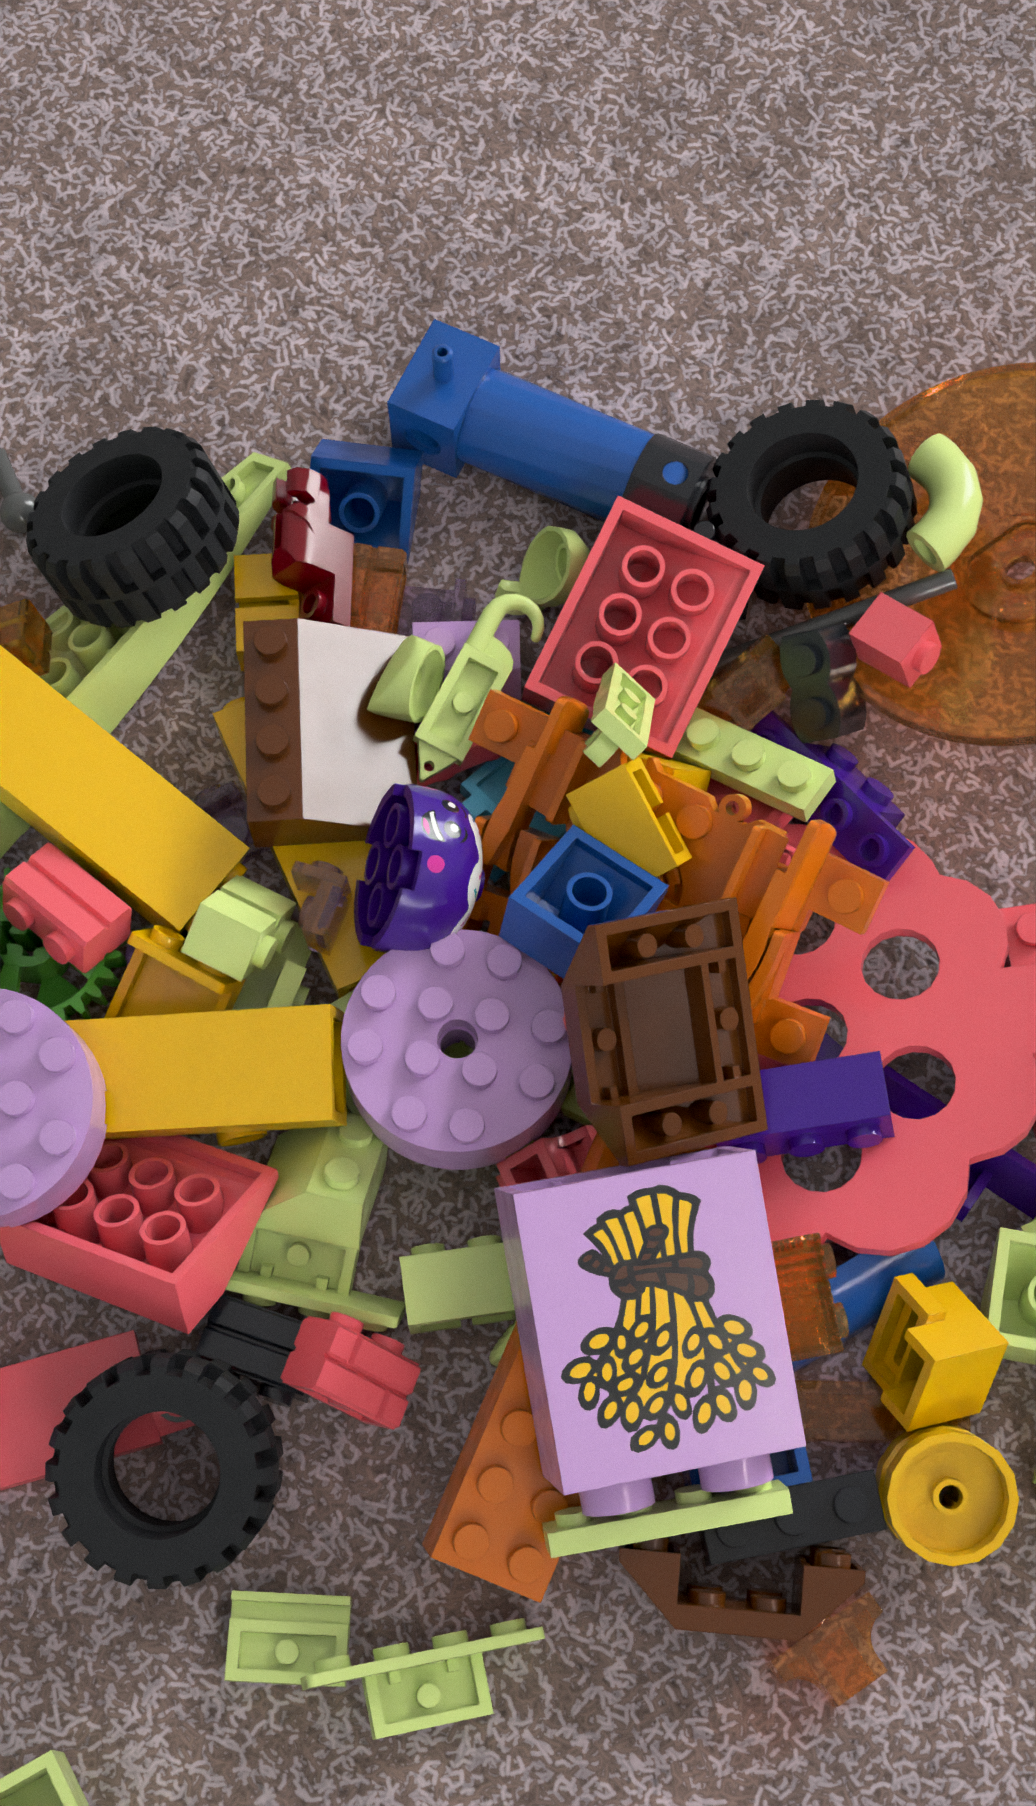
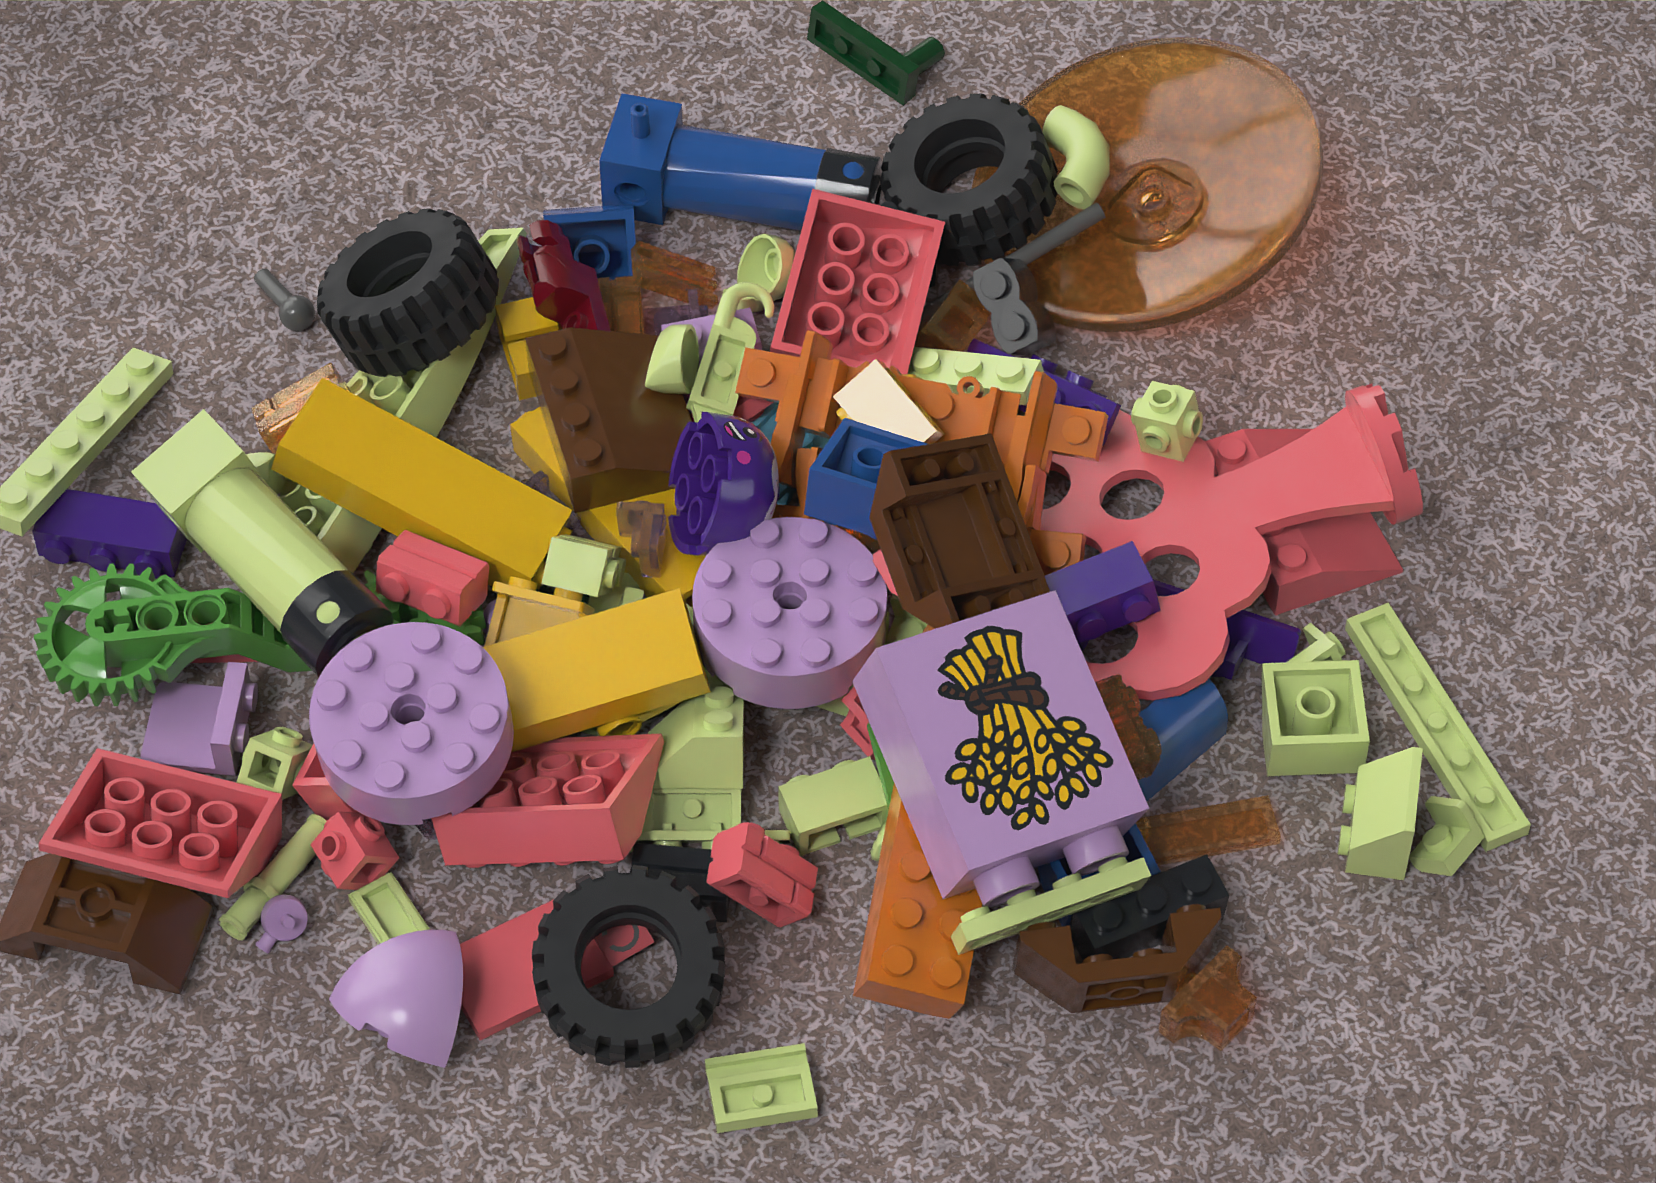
camera: 15 degrees left, 15 degrees down
(428, 1686) = (882, 1088): yellowish green bracket -> none
(449, 546) = (674, 272): none -> clear orange tile
(622, 717) = (857, 340): yellowish green plate -> none
(741, 312) = (869, 55): none -> dark green piece
(896, 640) = (1065, 261): coral brick -> none
(932, 1353) = (1232, 763): yellow plate -> none
(963, 884) = (1167, 420): none -> yellowish green brick
(969, 1520) = (1271, 863): yellow wheel -> none

